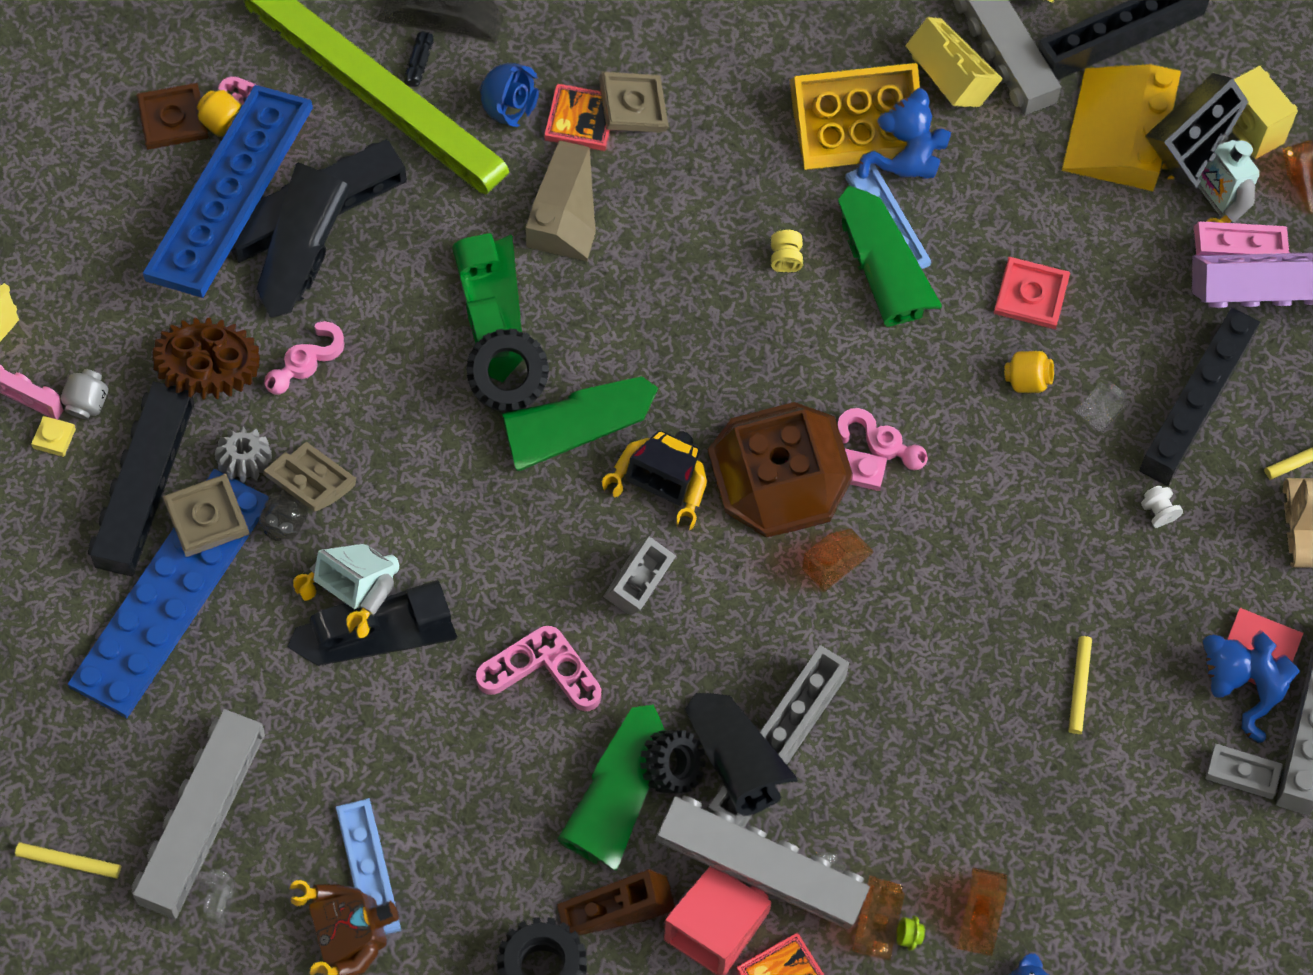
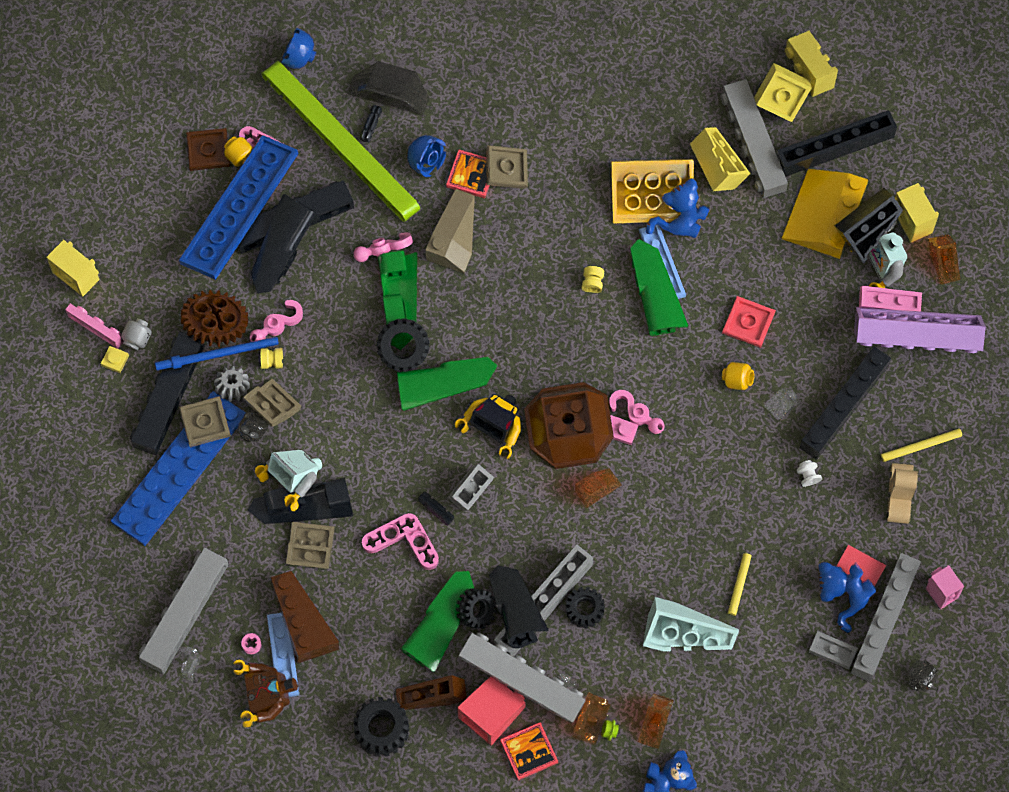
camera: 10 degrees right, 5 degrees up
(67, 860) = (101, 631): light yellow bar -> none
(153, 427) = (177, 361): none -> blue bar
(302, 411) = (271, 358): none -> light yellow wheel
(315, 865) = (251, 637): none -> bright pink bush
(394, 690) = (310, 545): none -> dark tan slope
(395, 809) = (303, 622): none -> reddish brown wedge
(454, 230) = (382, 246): none -> bright pink piece
(587, 614) = (436, 508): none -> black axle
(844, 725) = (588, 595): none -> black tyre
(995, 758) = (678, 626): none -> light aqua wedge

